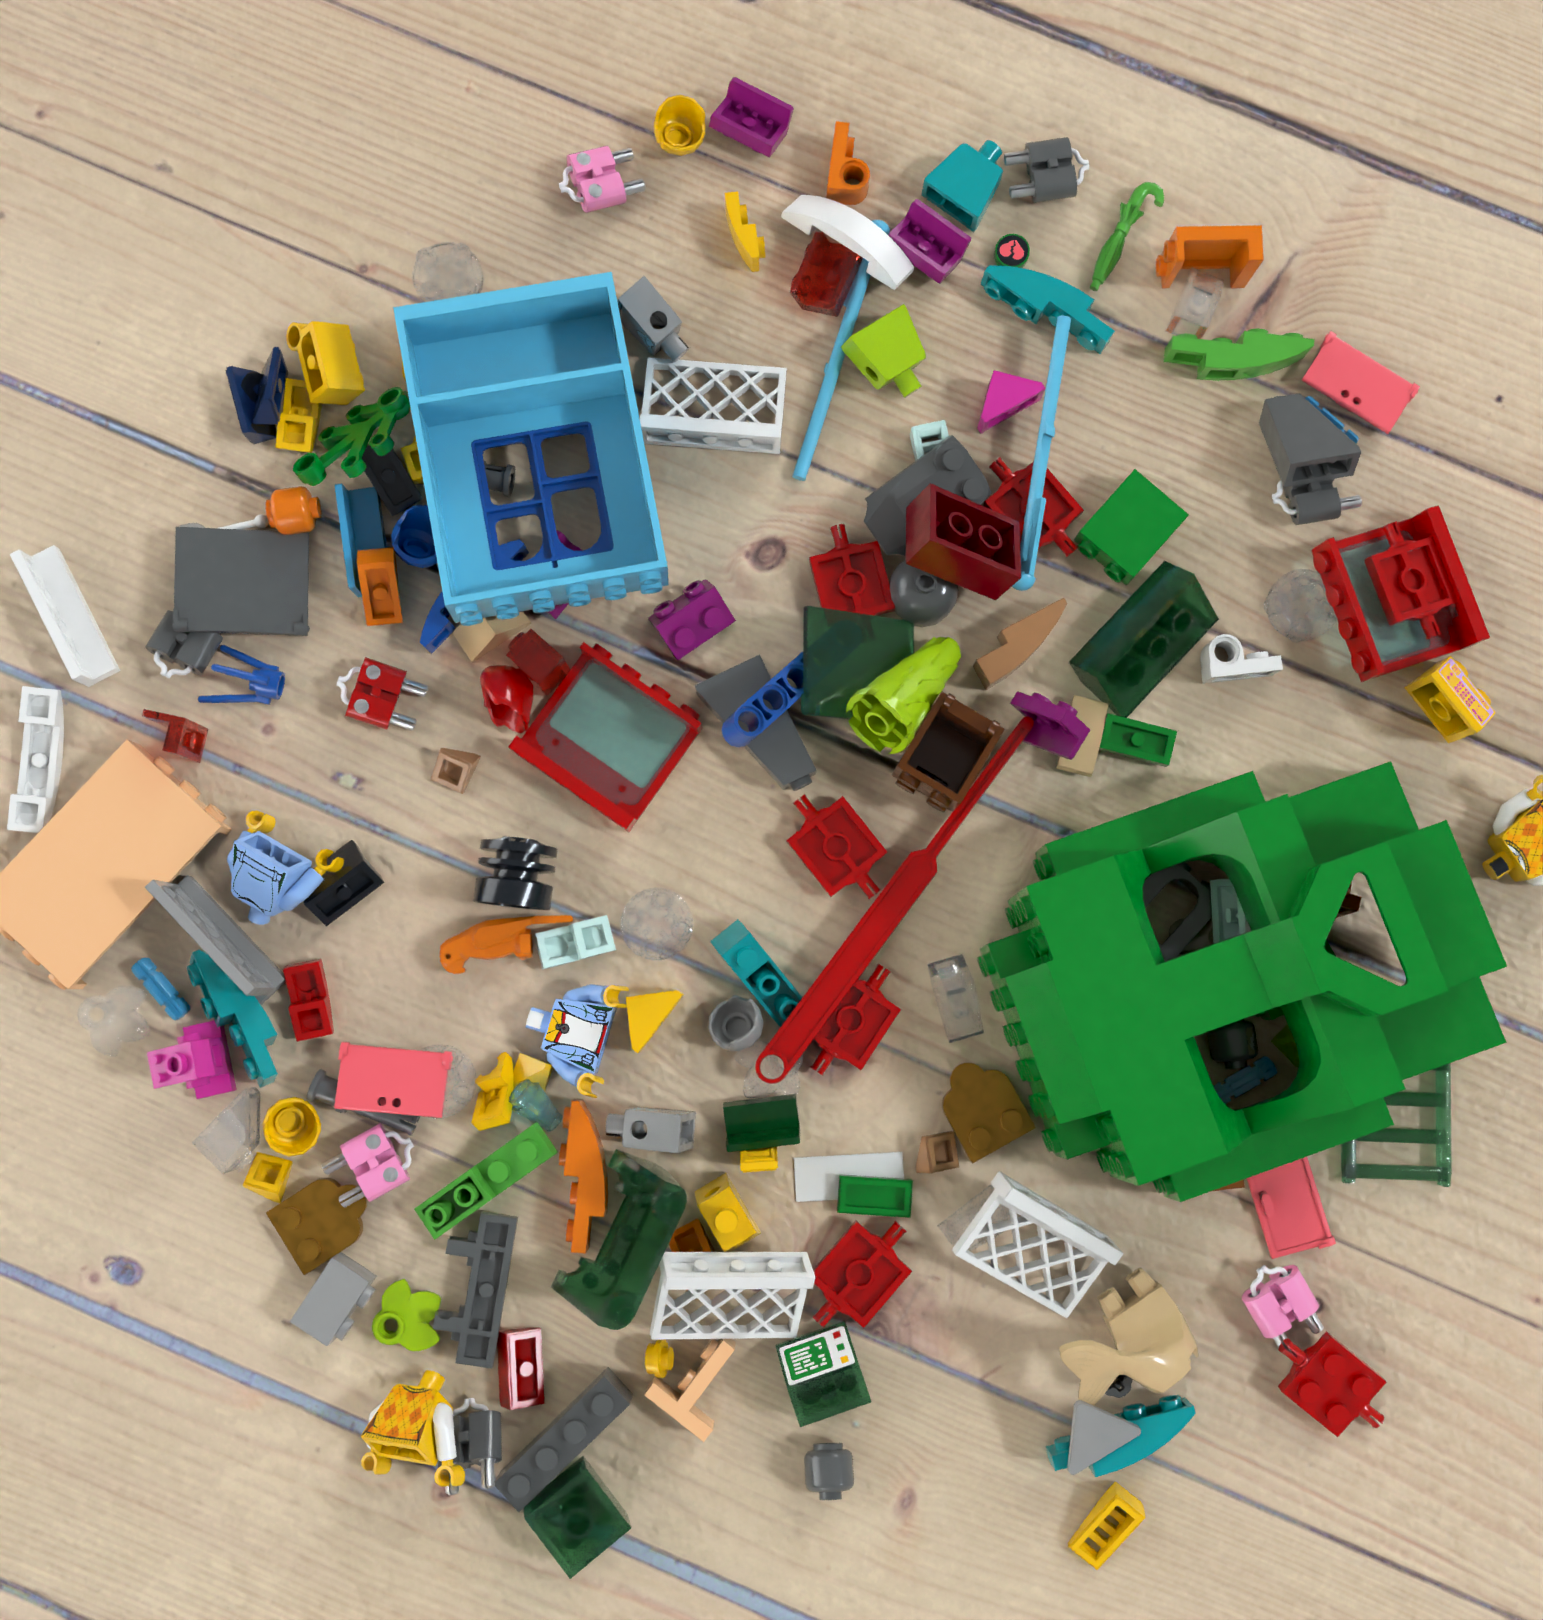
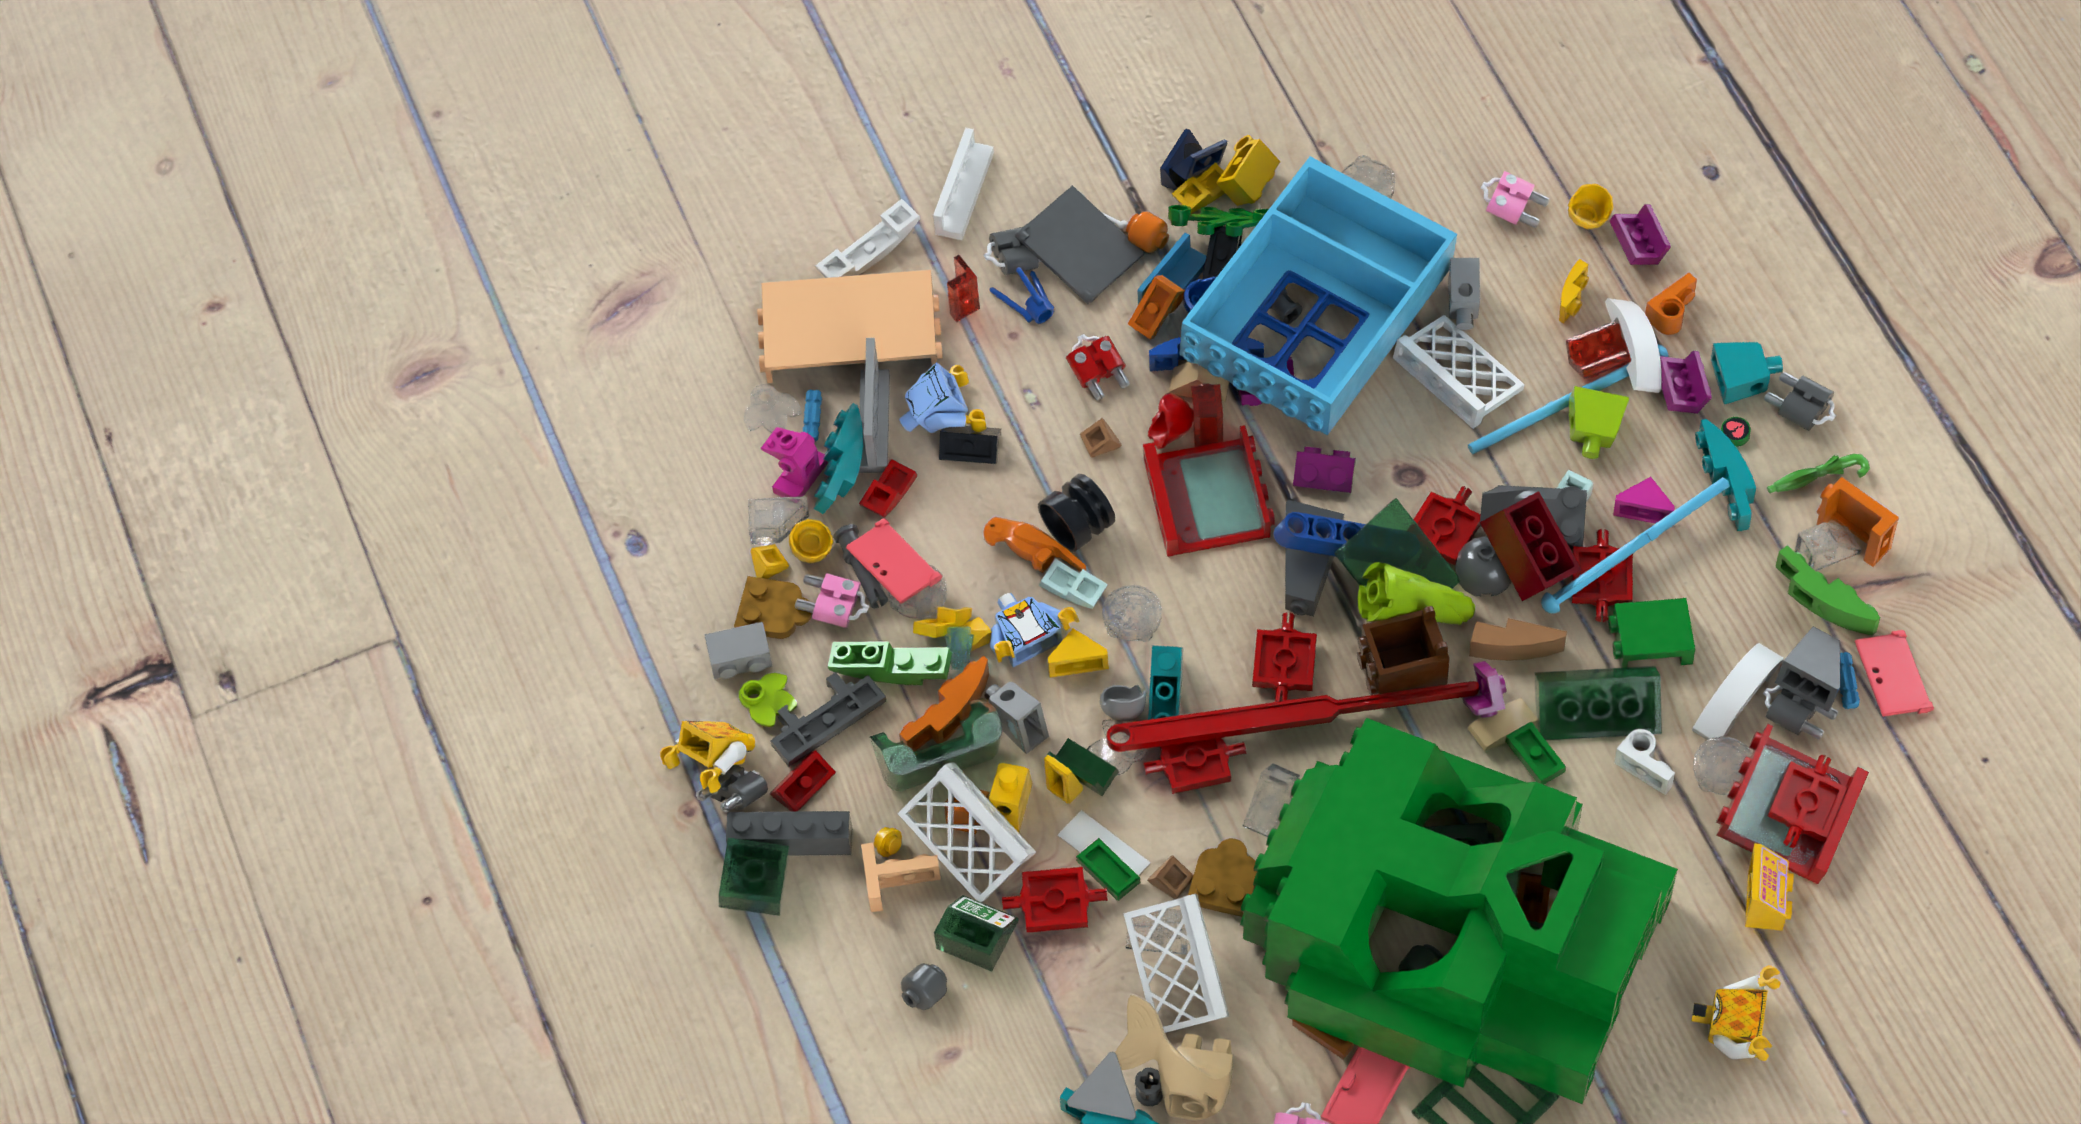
camera: 50 degrees right, 25 degrees down
(1250, 519) = (1737, 691): none -> white slope

